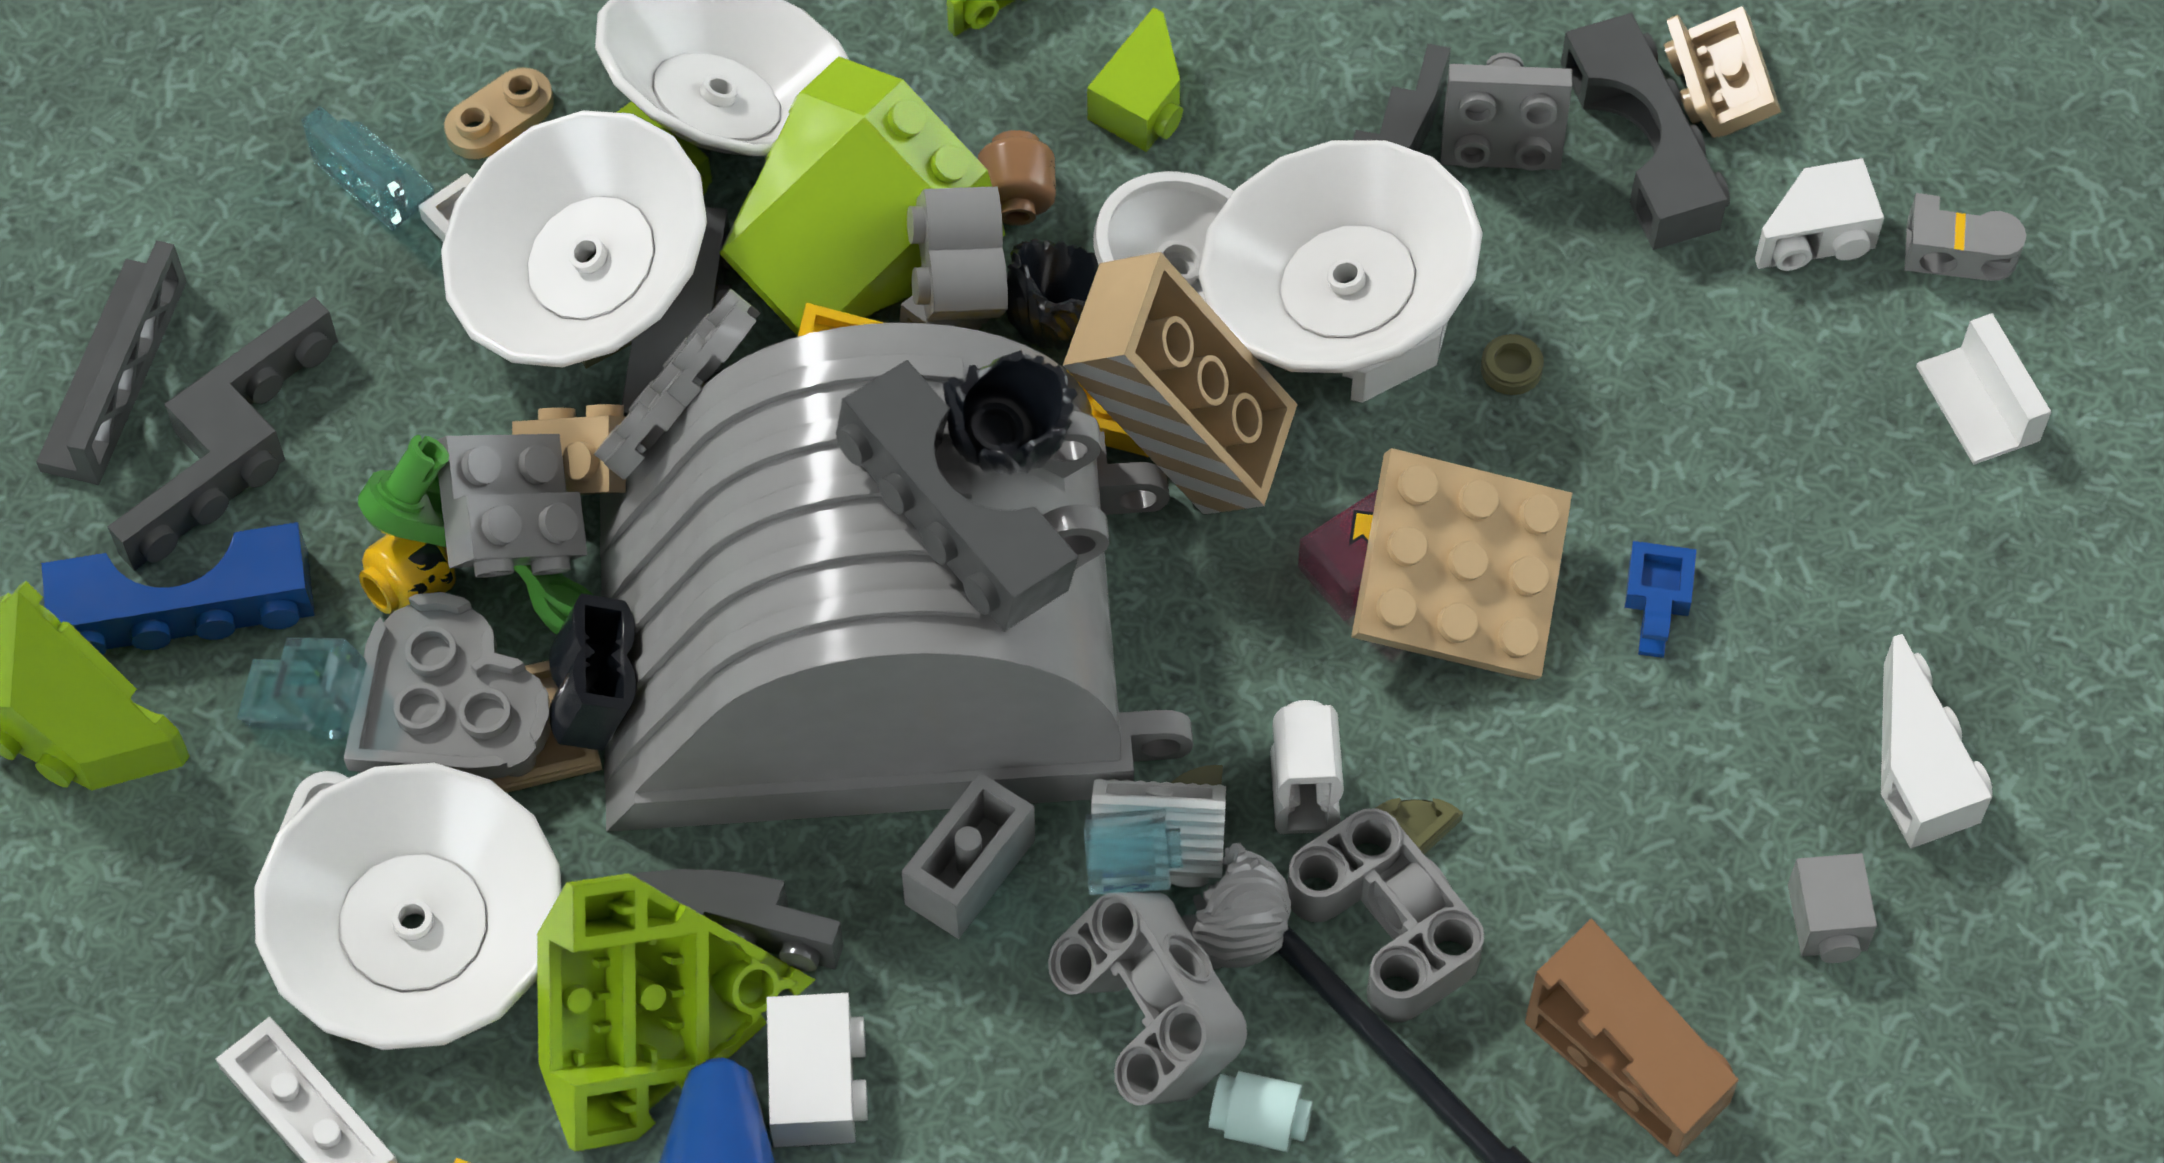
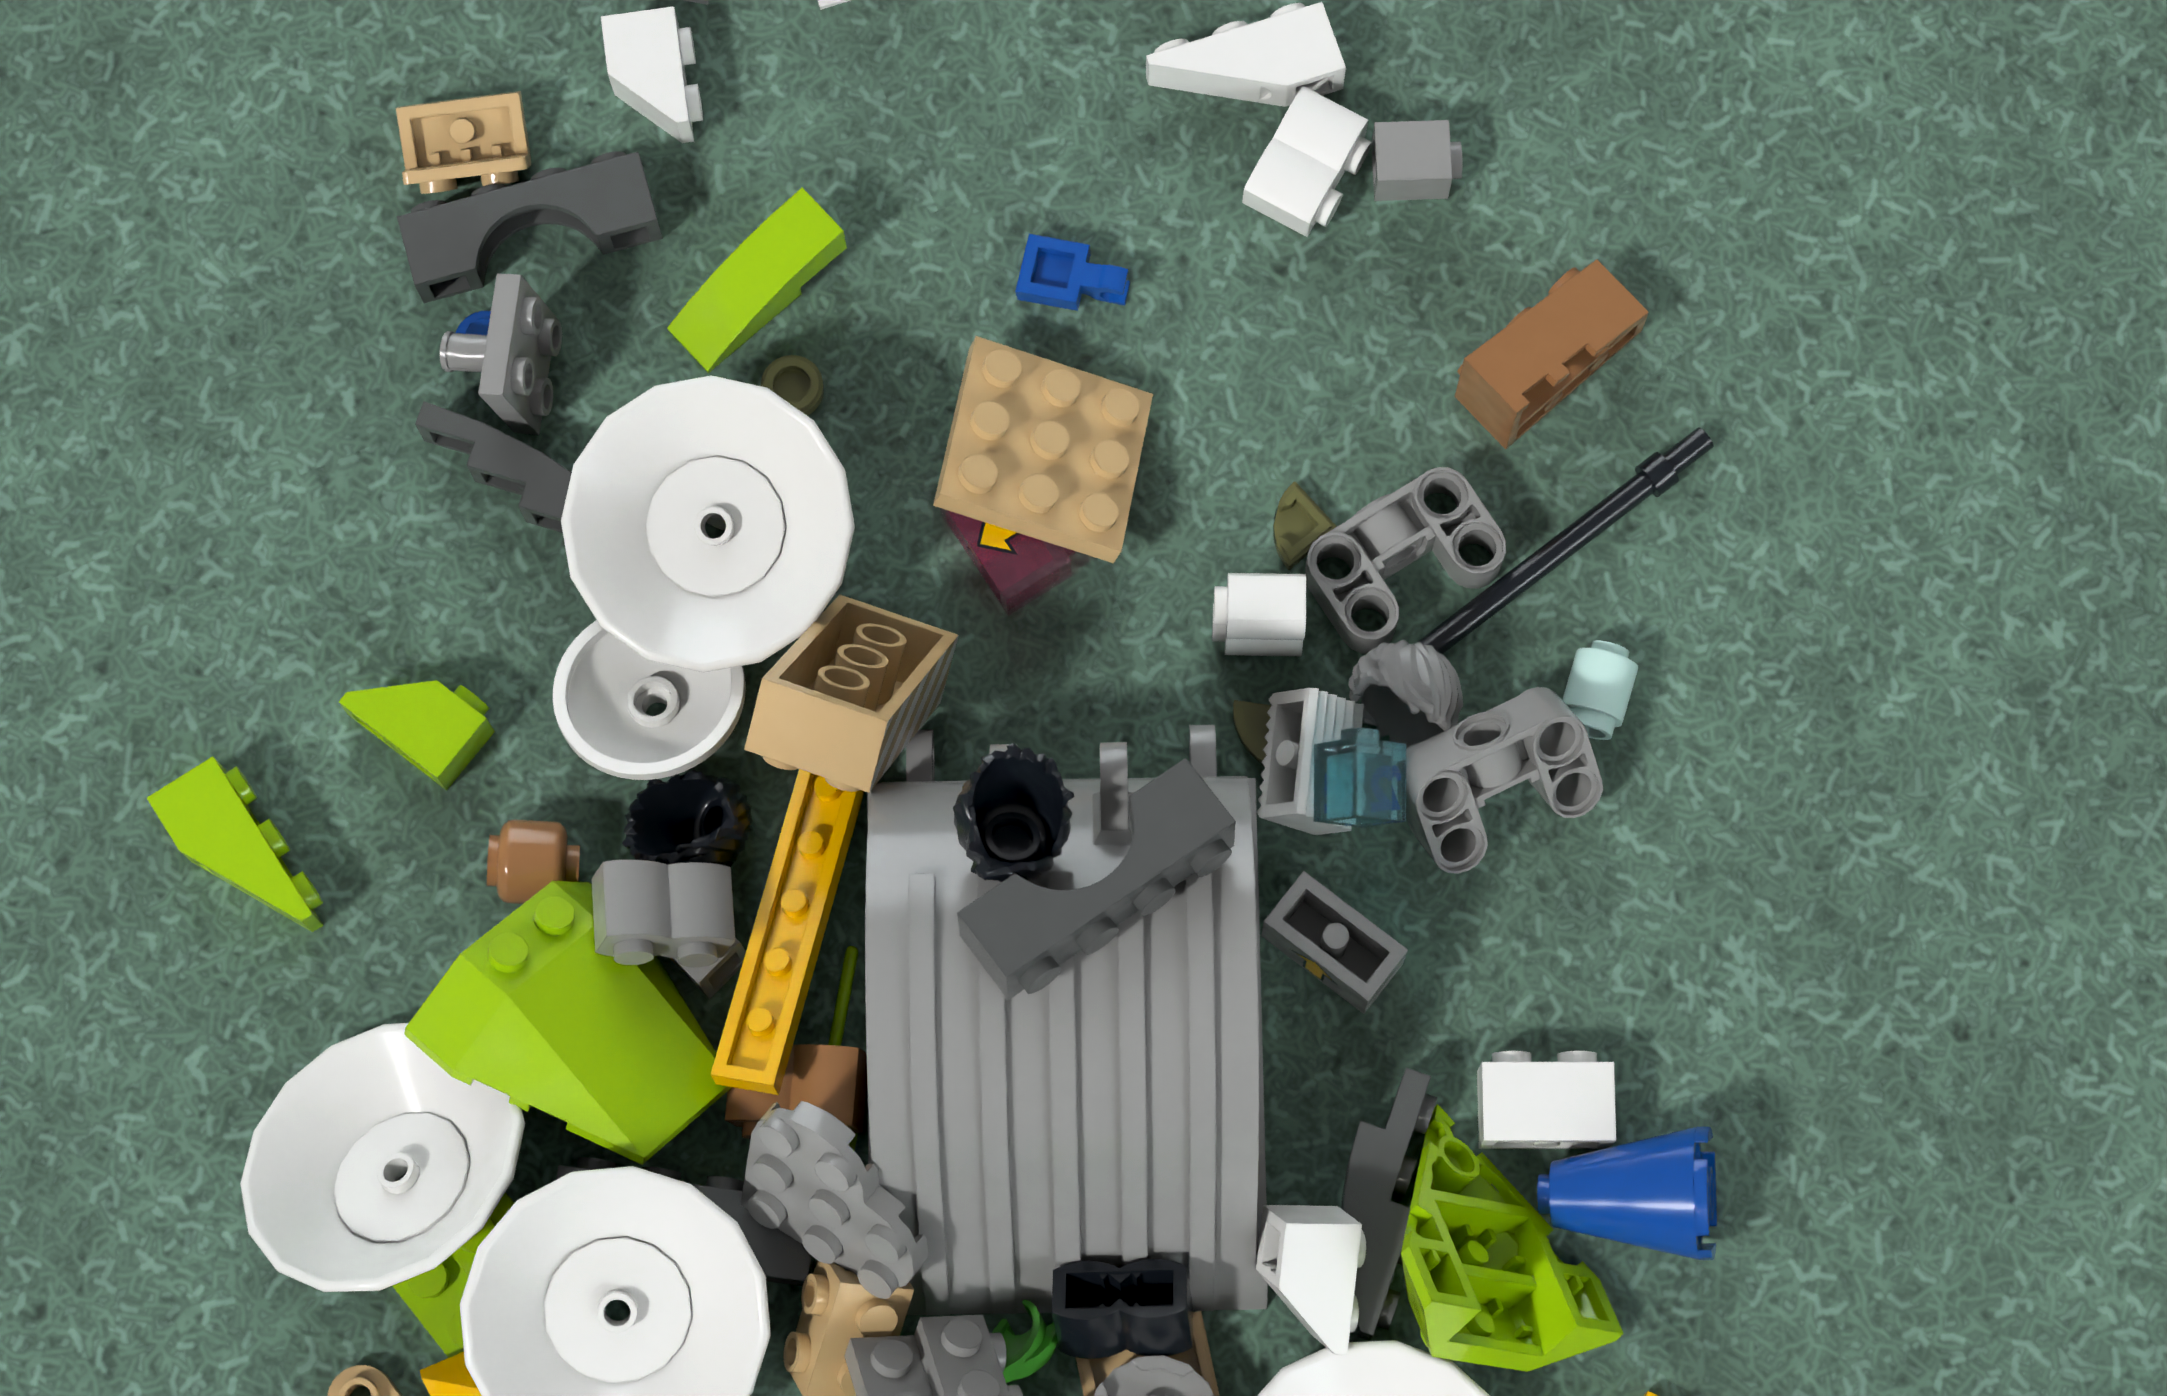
camera: 85 degrees left, 15 degrees up
(627, 823) = (1312, 1266): none -> white slope
(1618, 322) = (758, 280): none -> lime slope
(1813, 801) = (1306, 161): none -> white brick

